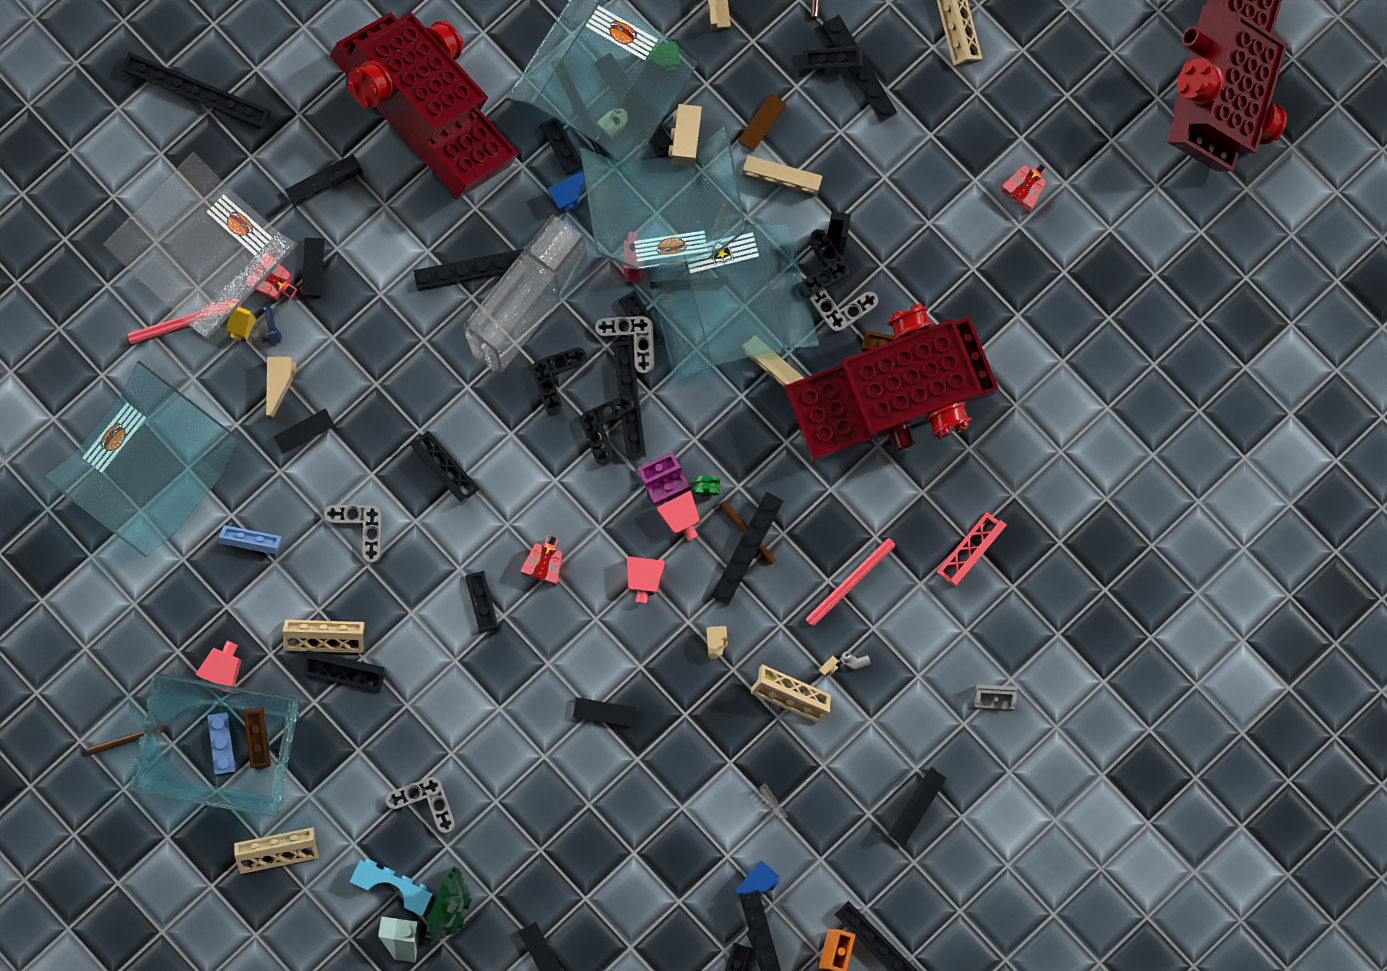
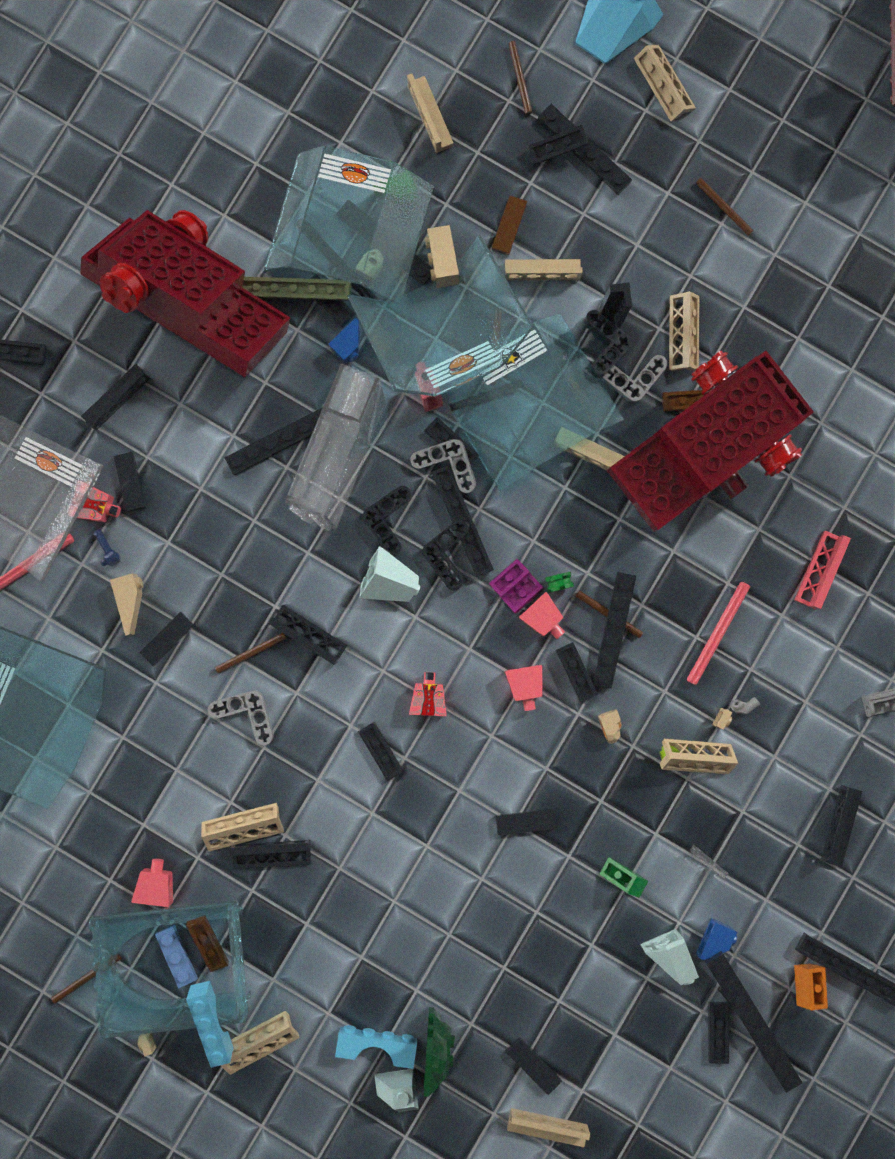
camera: 15 degrees left, 5 degrees up
(168, 817) = (147, 1043): none -> tan plate
(239, 823) = (203, 1010): none -> medium azure arch
(240, 324) = (75, 555): yellow slope -> none
(250, 539) = (145, 757): medium blue plate -> none
(382, 468) = (251, 652): none -> reddish brown bar
(431, 797) = (387, 949): light grey beam -> none
(533, 125) = (297, 288): none -> olive plate
(539, 435) = (388, 579): none -> light aqua slope
(685, 793) = (624, 877): none -> green slope
(697, 579) = (576, 672): none -> black plate
(709, 884) = (672, 956): none -> light aqua slope
(908, 276) = (690, 332): none -> tan fence
(982, 164) = (724, 206): none -> reddish brown bar
(1025, 186) = (772, 215): torso -> none

